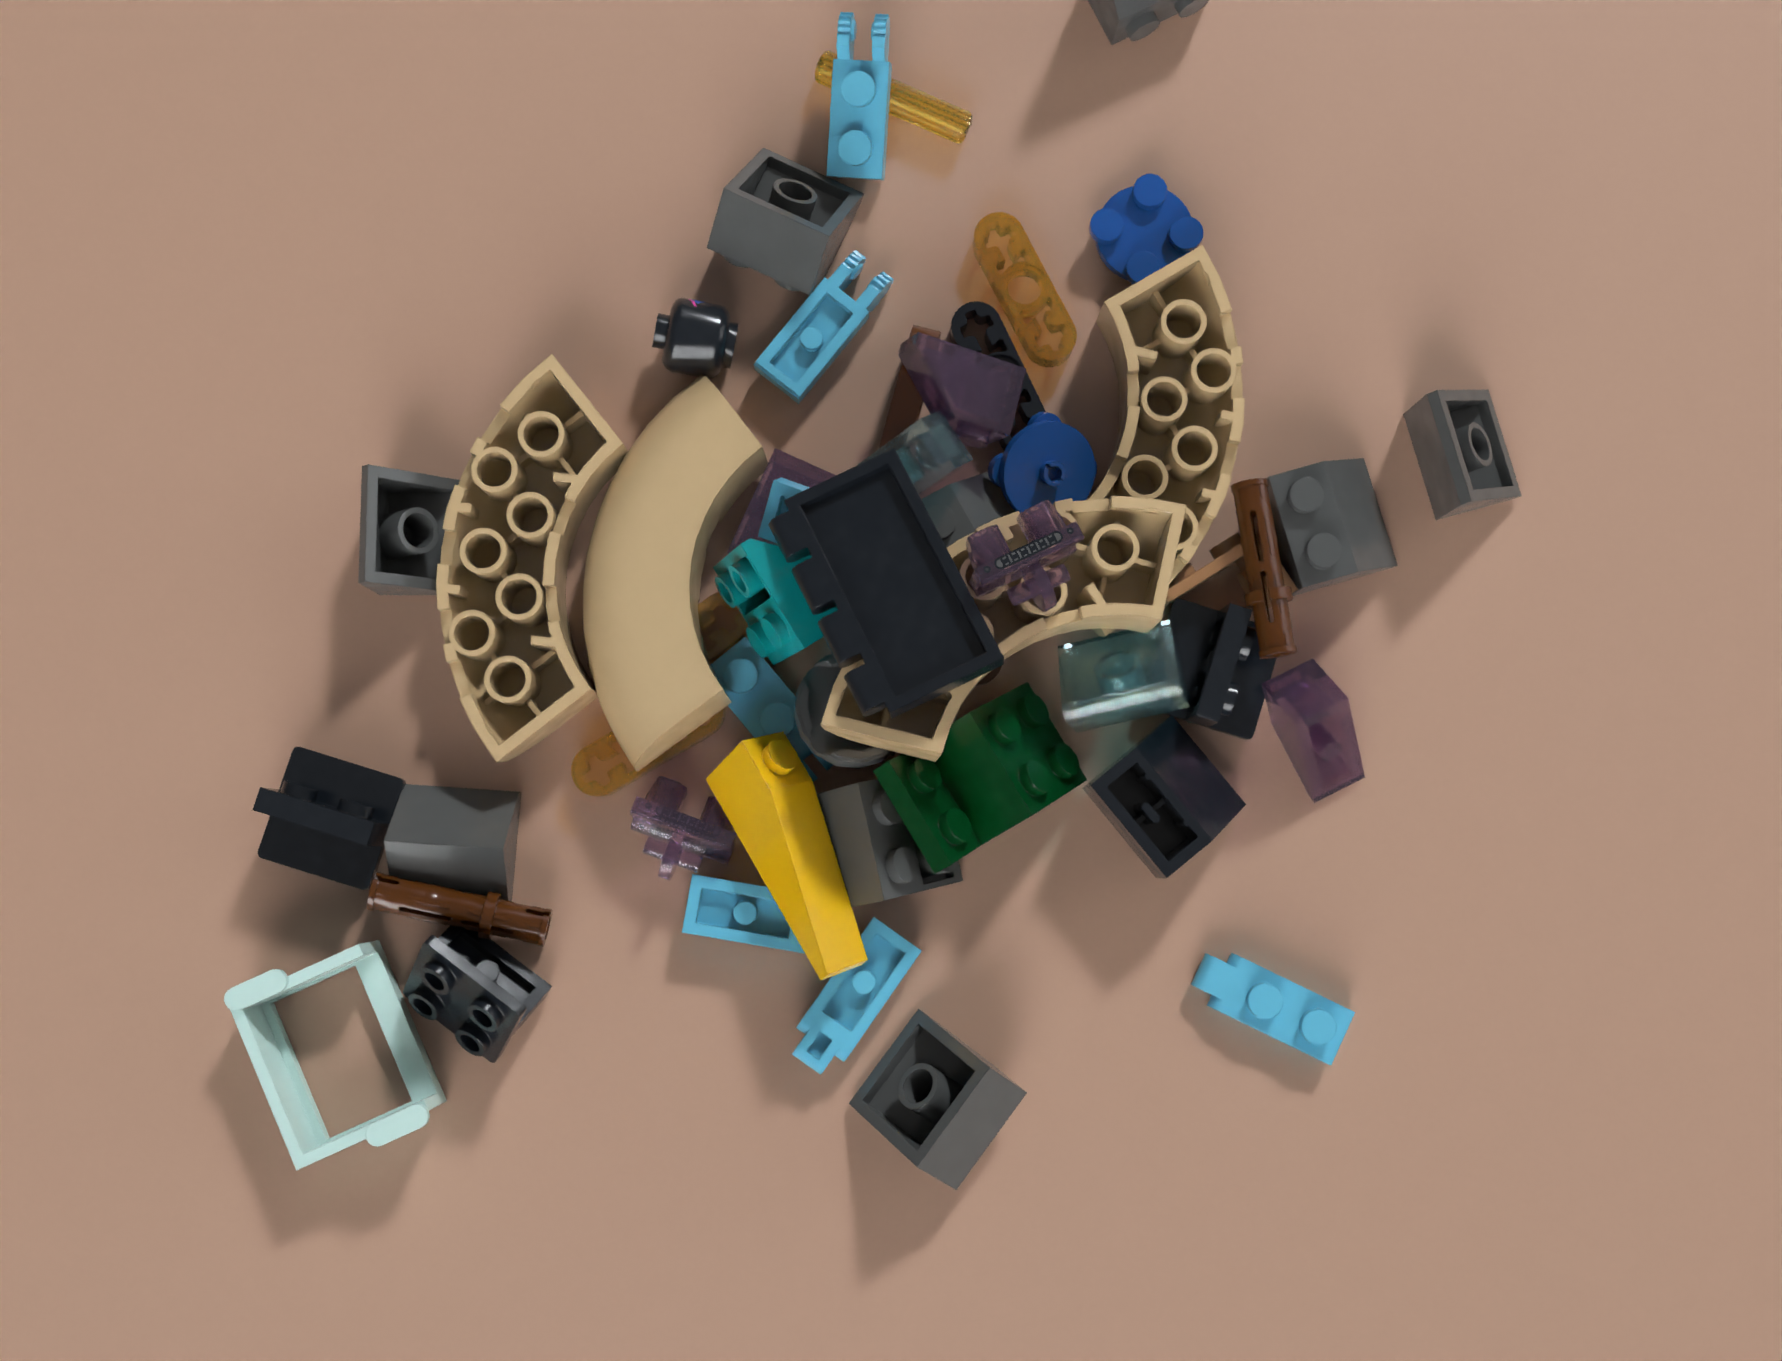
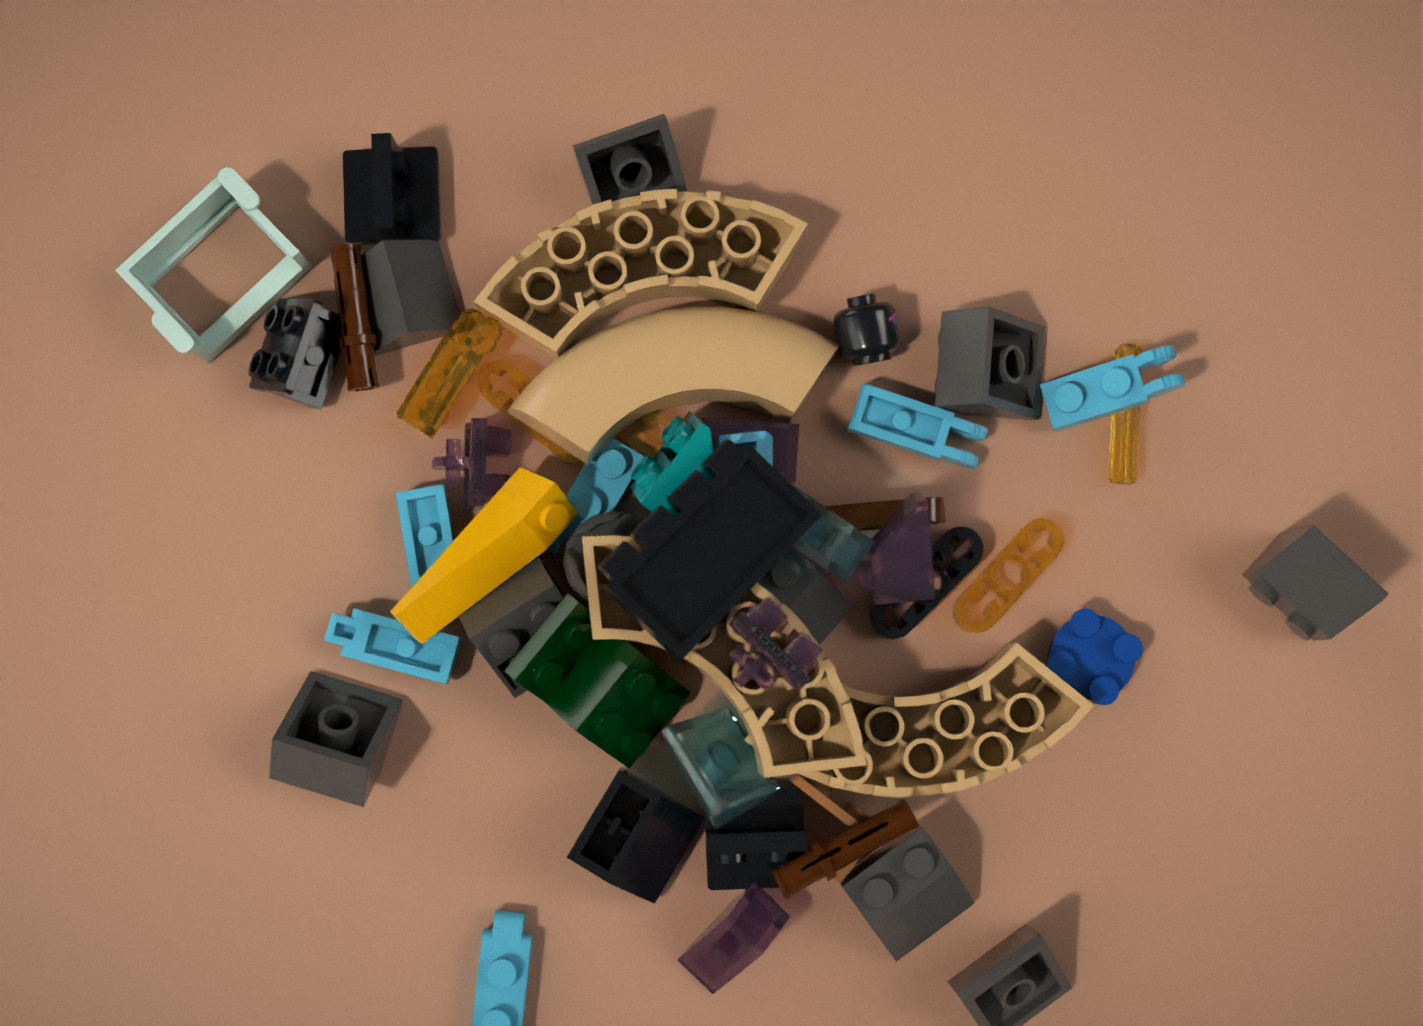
camera: 75 degrees right, 0 degrees up
(564, 822) = (449, 371): none -> clear yellow hinge
(1044, 464) = (865, 644): blue piece -> none

